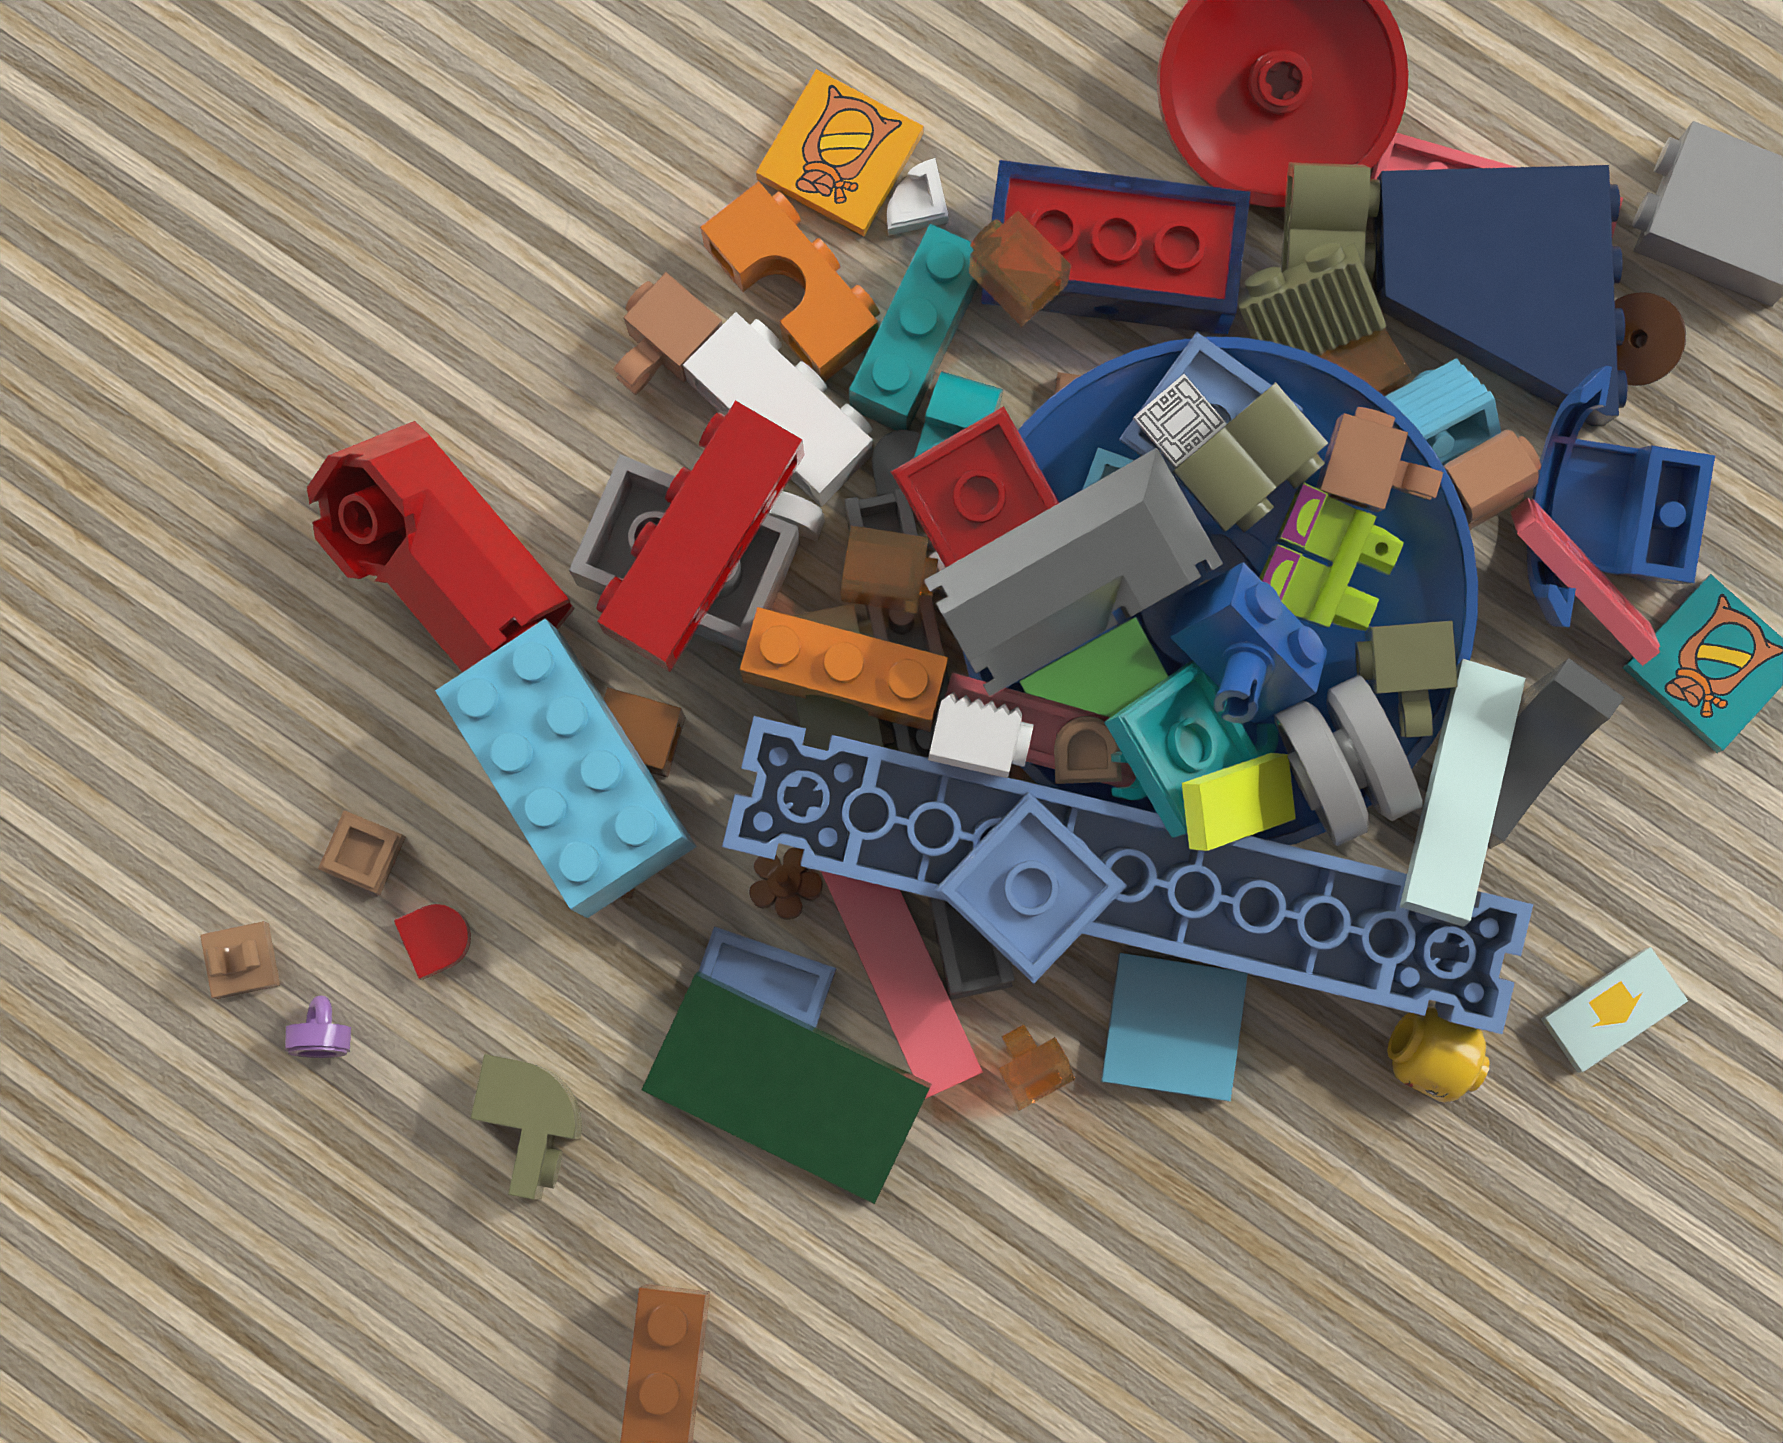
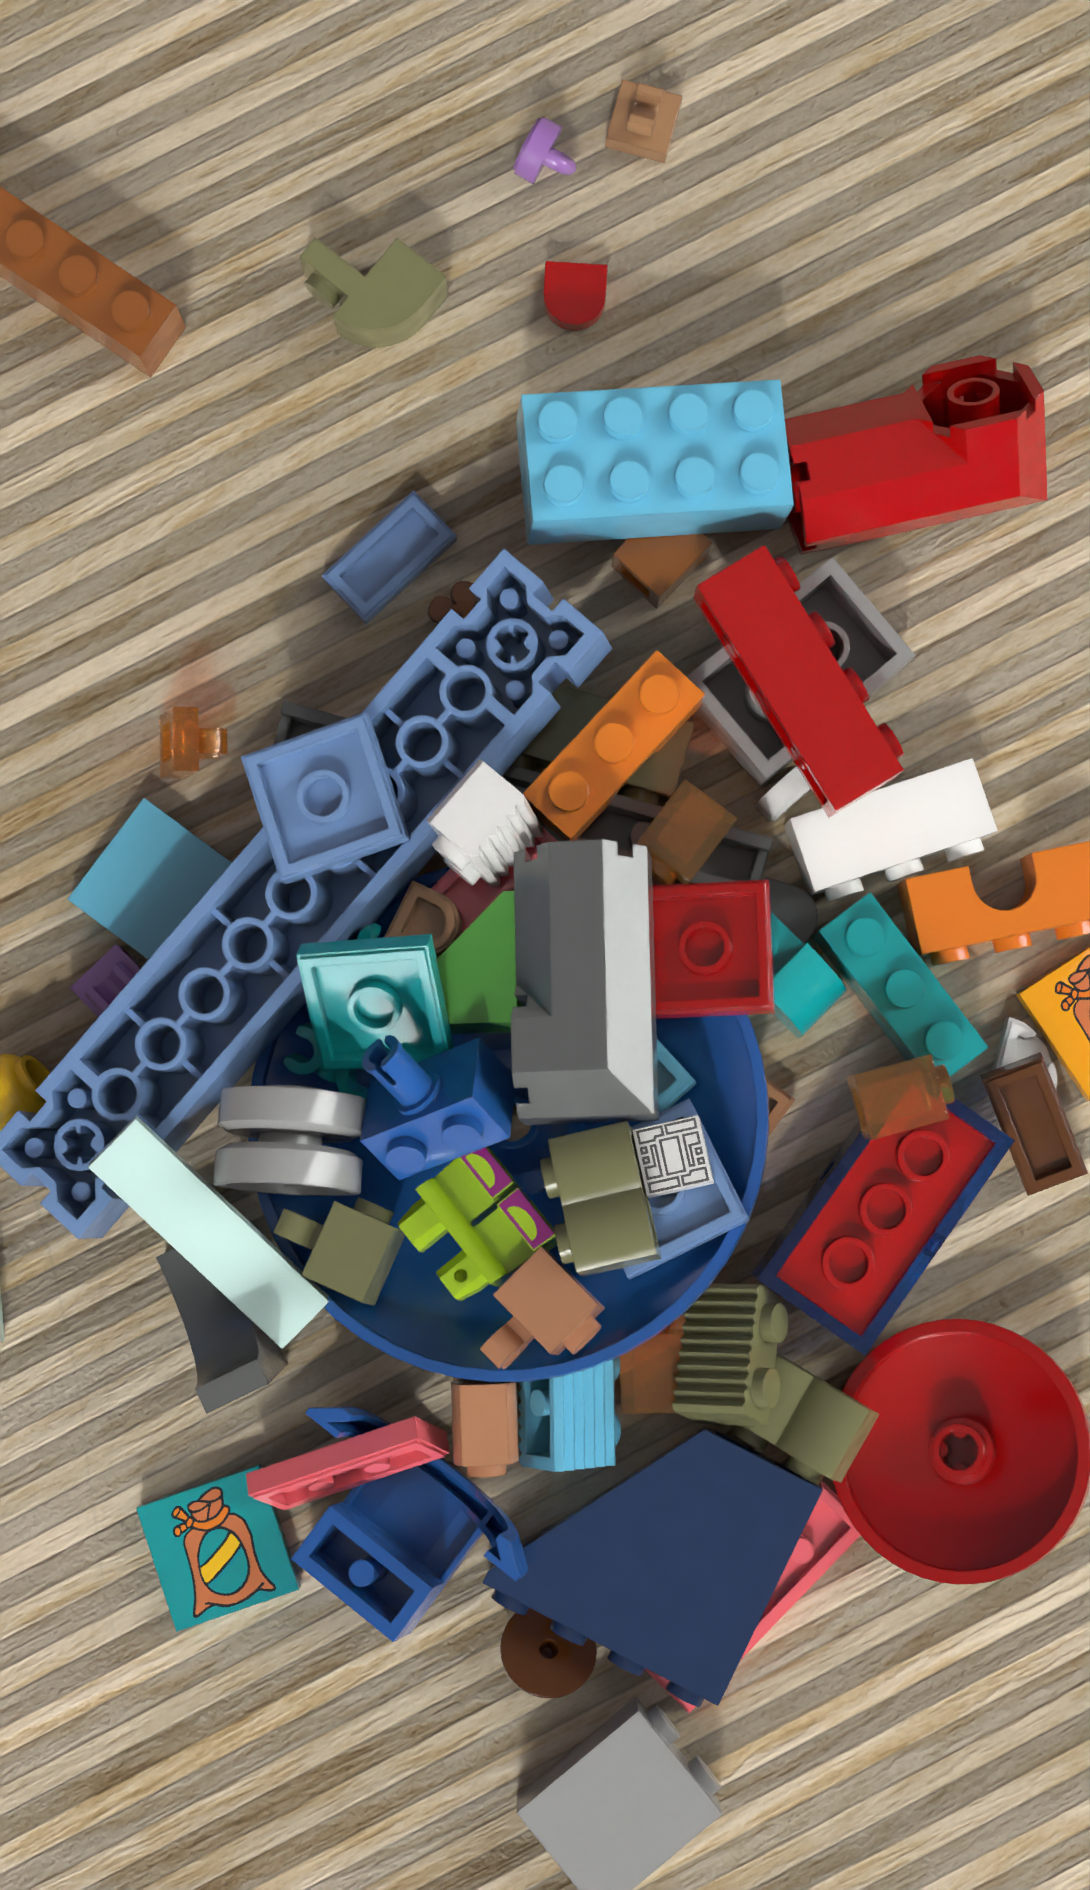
camera: 115 degrees right, 5 degrees up
(362, 852) = (683, 269): medium nougat tile -> none
(669, 330) = (1014, 768): nougat brick -> none
(786, 1087) = (284, 524): dark green tile -> none
(905, 982) = (299, 673): coral tile -> none
(969, 162) = (1035, 1119): none -> reddish brown tile
(1238, 801) = (301, 1019): neon yellow tile -> none
(1285, 1015) = (106, 979): none -> medium lavender tile

